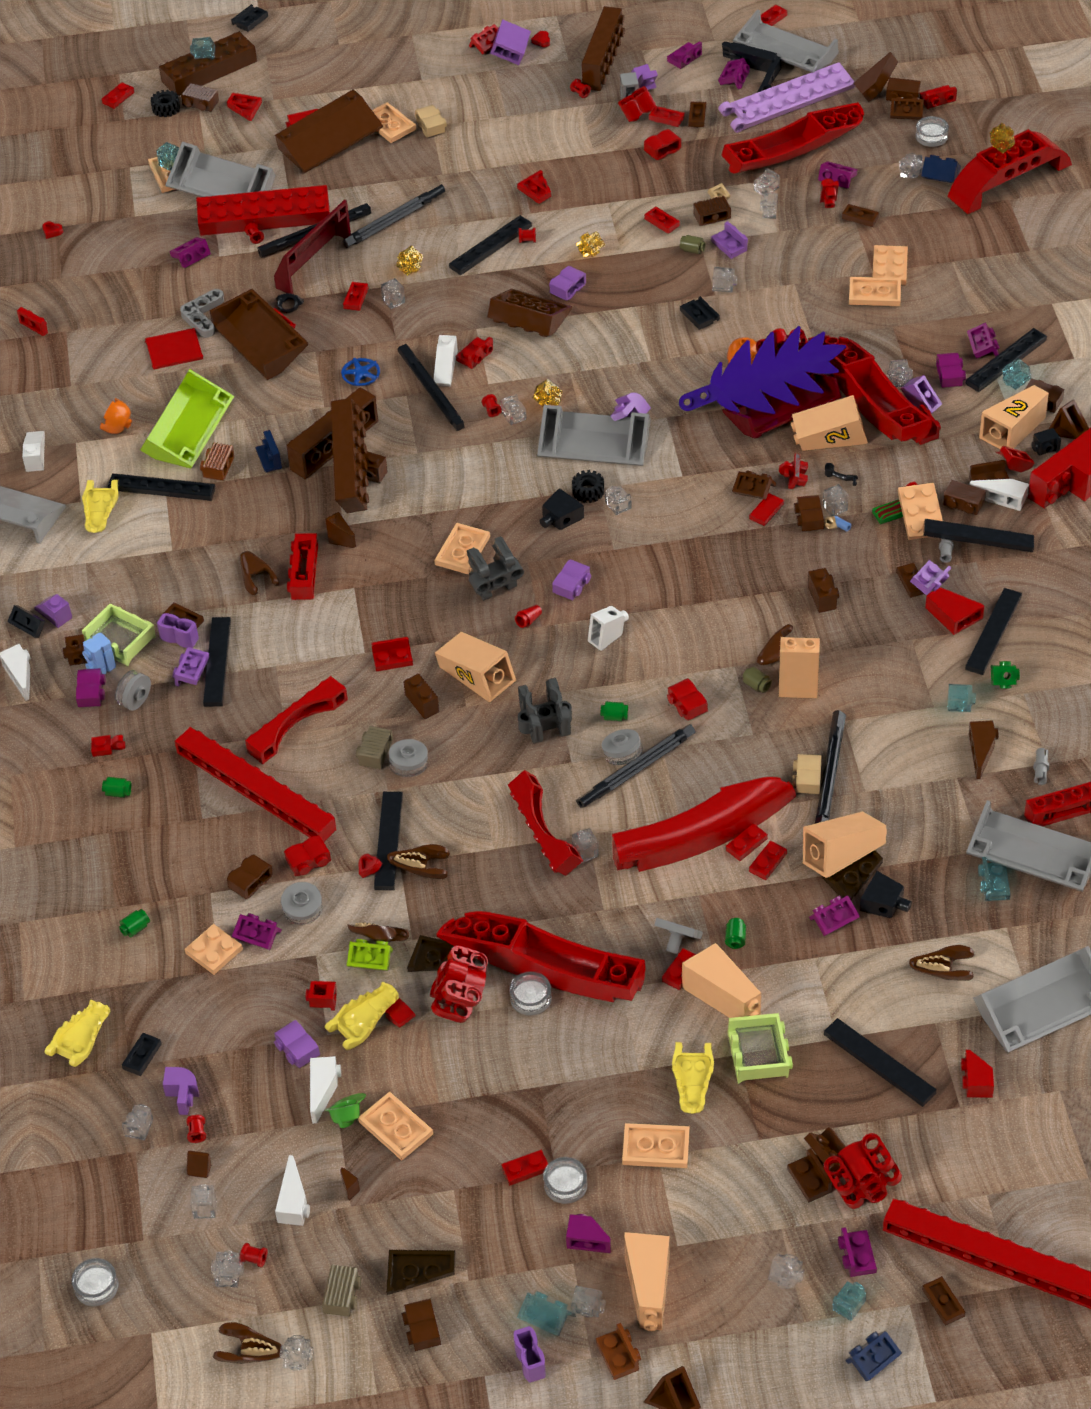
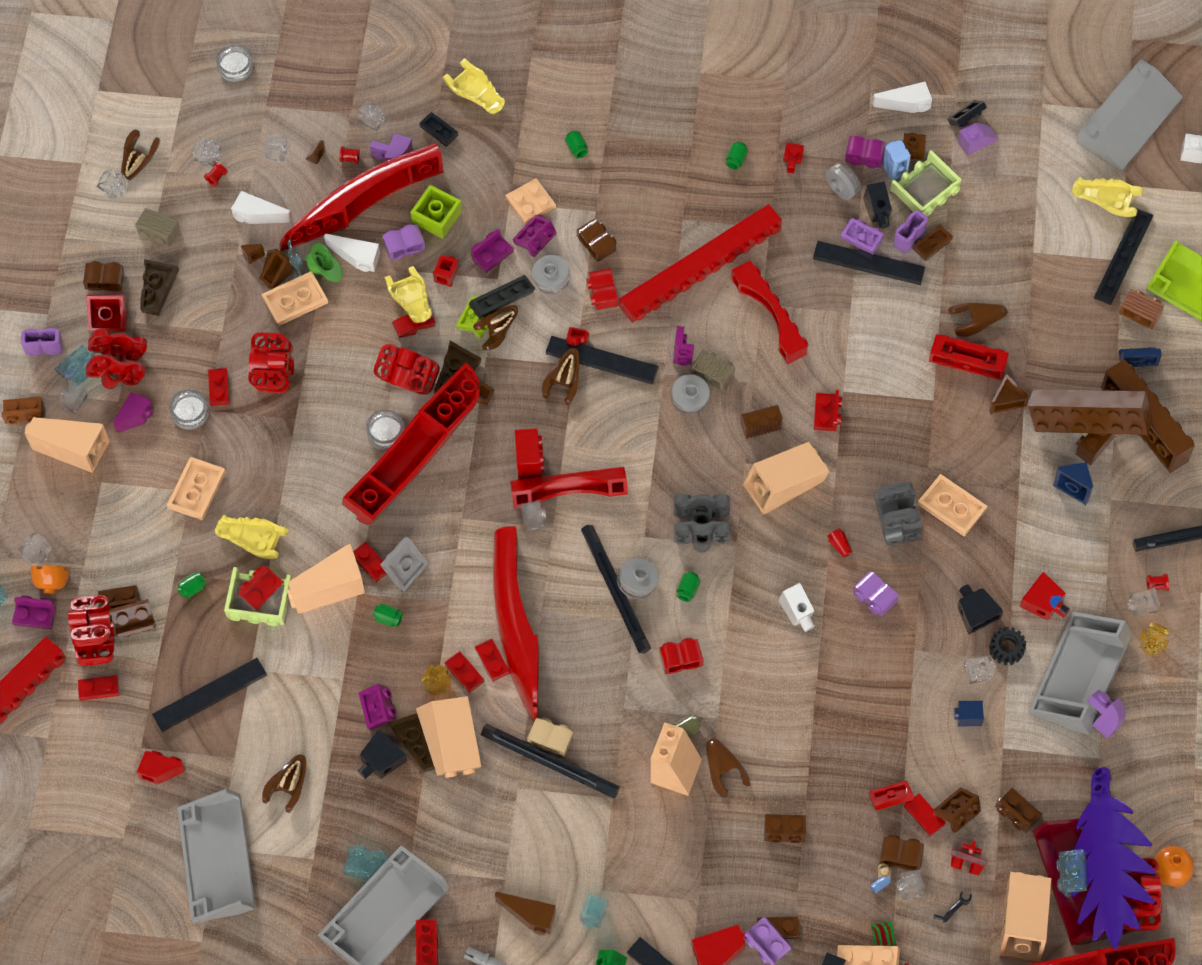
camera: 105 degrees right, 15 degrees up
(152, 659) = (878, 204): none -> black torso
(250, 1099) = (361, 192): none -> red slope
(253, 1020) = (436, 211): none -> lime brick
(286, 964) = (491, 251): none -> magenta bracket
(345, 929) = (501, 296): none -> pearl dark grey plate
(348, 1138) = (294, 258): none -> clear light blue plate
(360, 772) = (682, 351): none -> magenta bracket
(362, 1155) = (276, 268): none -> reddish brown slope
(414, 464) = (1075, 481): none -> dark blue slope
(470, 1304) = (106, 312): none -> red slope
(491, 1105) = (270, 362): none -> red piece
(521, 860) = (529, 453): none -> red brick
(531, 1269) = (113, 358): none -> red piece
(532, 471) = (1045, 598): none -> red torso
(662, 496) = (969, 713): none -> dark blue brick
(737, 453) = (1018, 810): none -> reddish brown bracket
(752, 1040) = (260, 587): none -> red bracket
(760, 530) = (891, 795): none -> red plate
(769, 1112) = (191, 585): none -> green brick
(782, 401) = (1072, 871): none -> clear light blue bracket
(788, 871) = (436, 679): none -> clear yellow brick
(812, 1243) = (49, 577): none -> orange cylinder
(914, 1163) = (98, 687): none -> red plate

